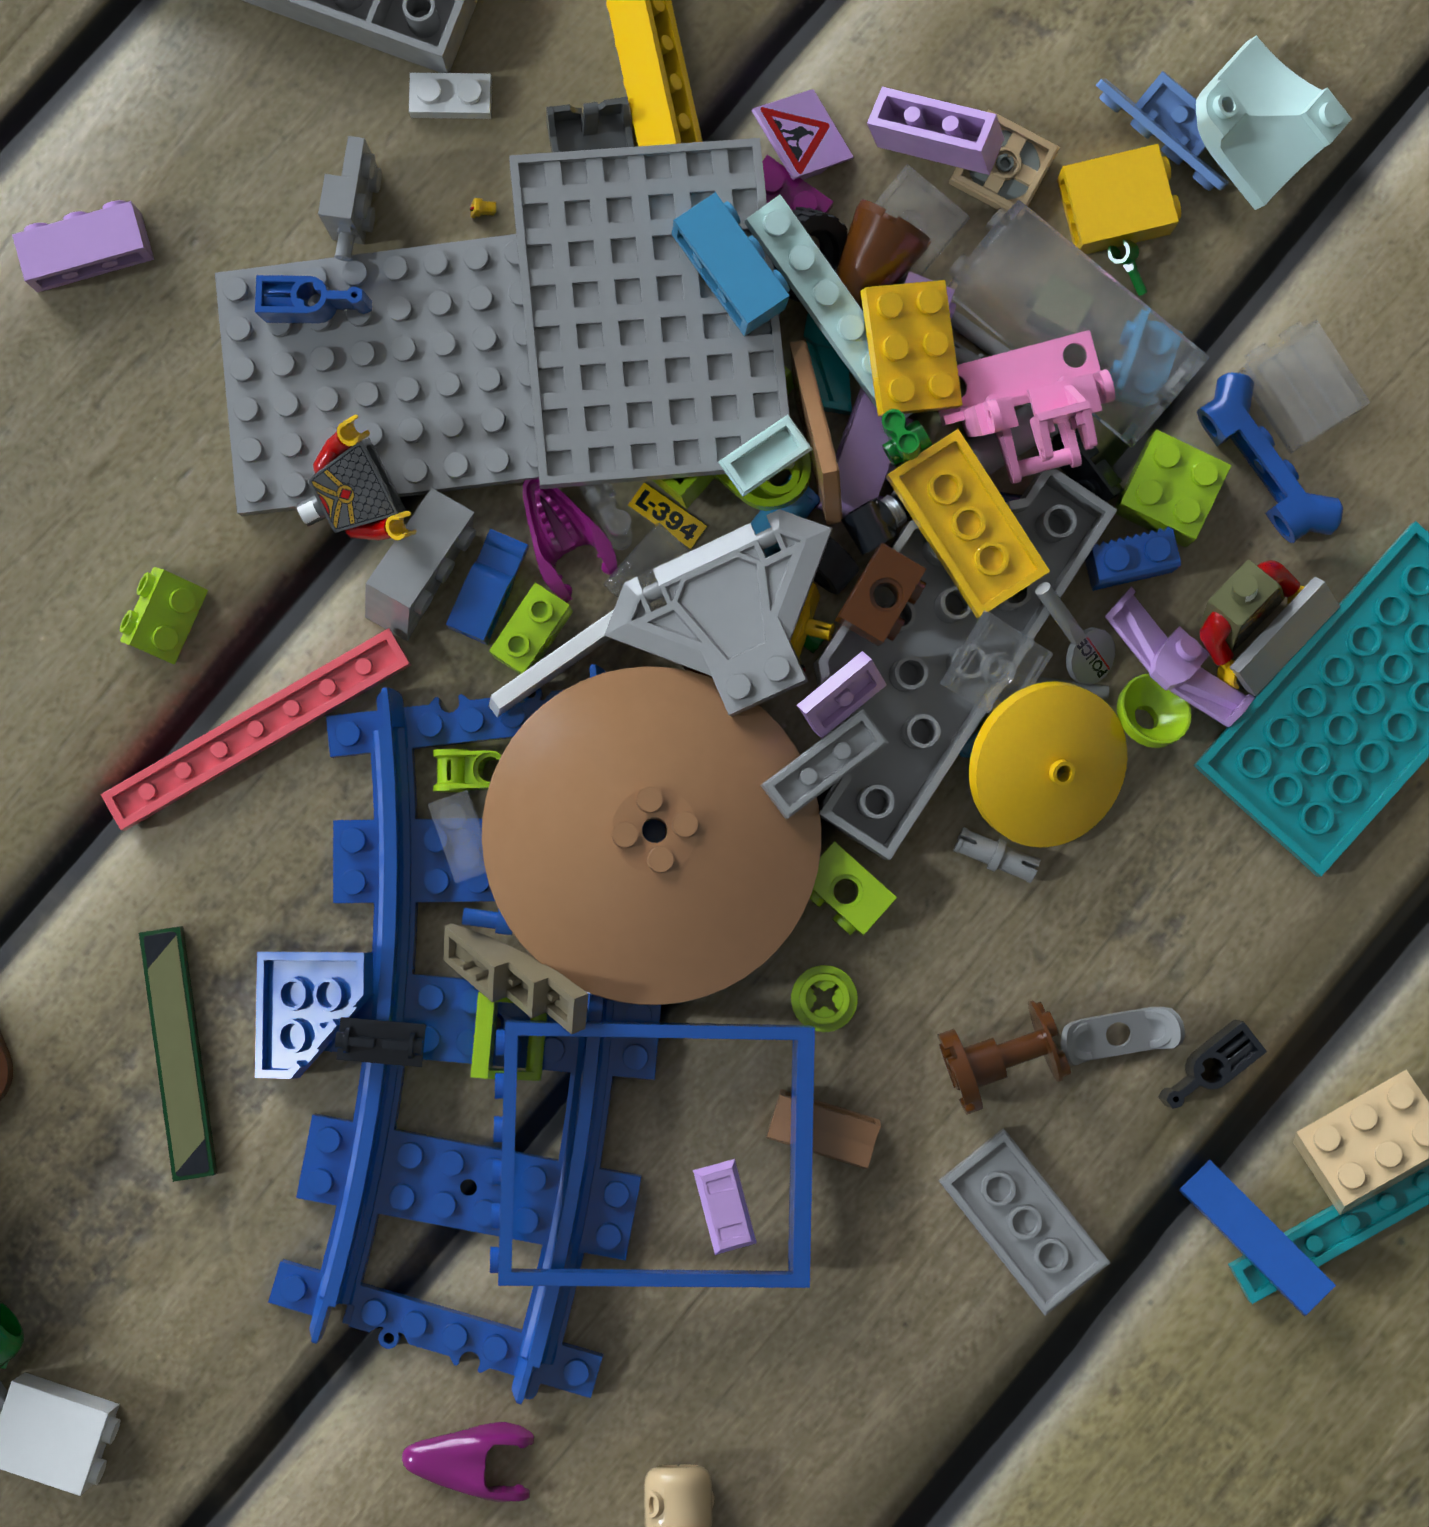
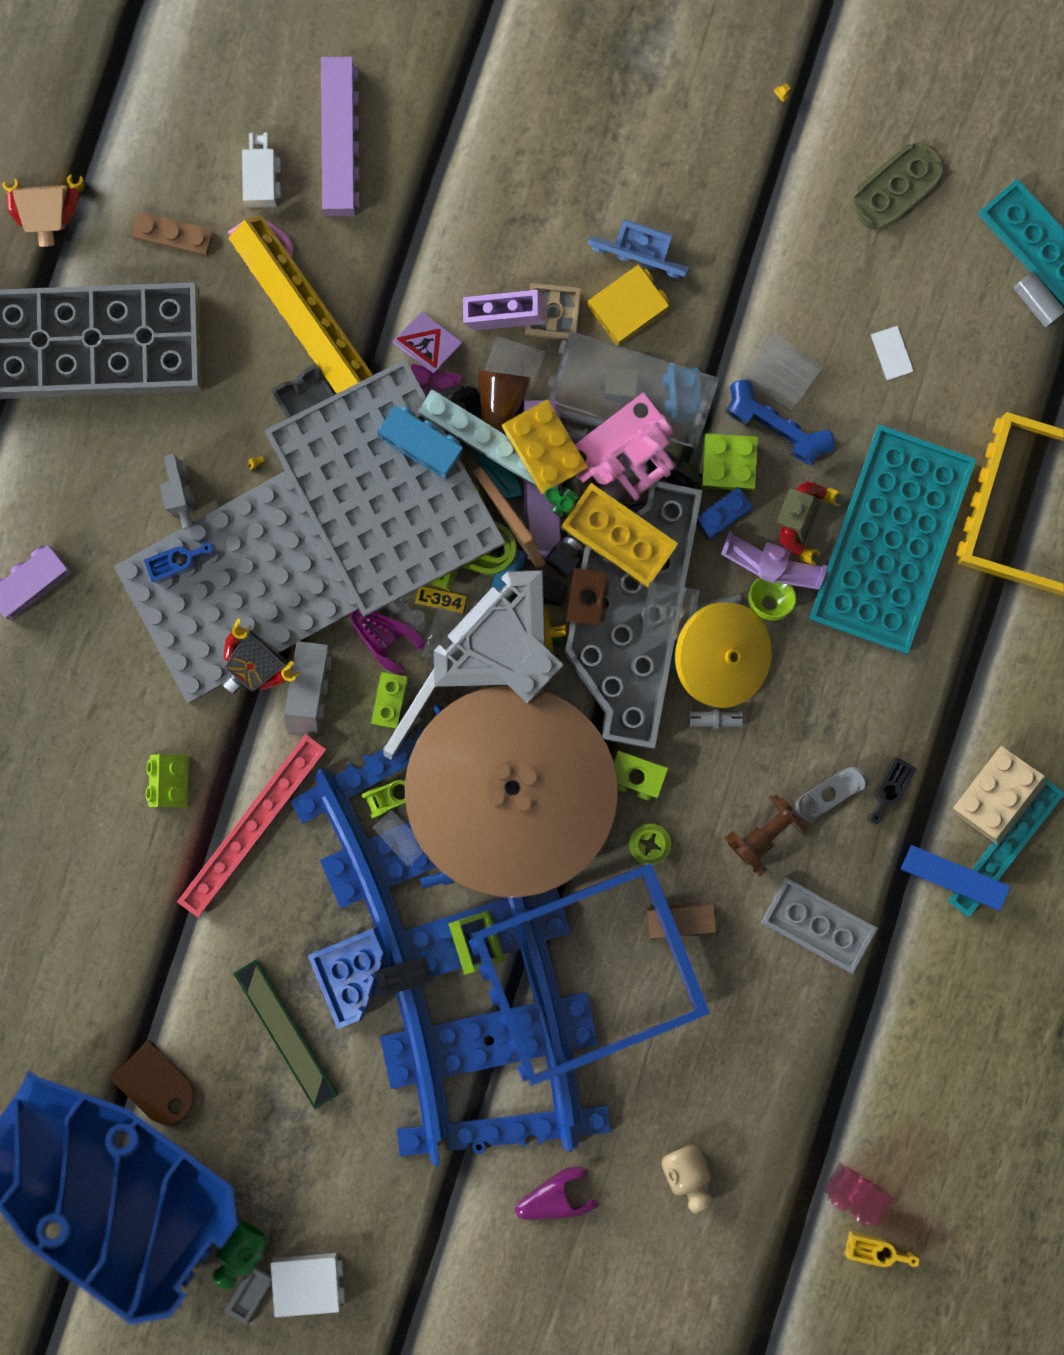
camera: 25 degrees left, 0 degrees up
(450, 95) = (208, 403): white plate -> none
(487, 587) = (353, 685): blue piece -> none
(510, 973) = (460, 905): dark tan slope -> none
(724, 1206) = (642, 987): lavender tile -> none
(765, 455) = (486, 545): light aqua tile -> none
(824, 764) = (594, 708): light grey tile -> none
(841, 694) = (587, 664): lavender plate -> none
(1090, 649) = (721, 577): light grey piece -> none
(1129, 264) = (650, 339): green hand -> none
(1266, 123) = (694, 225): light aqua slope -> none
(1285, 636) = (830, 523): light grey tile -> none

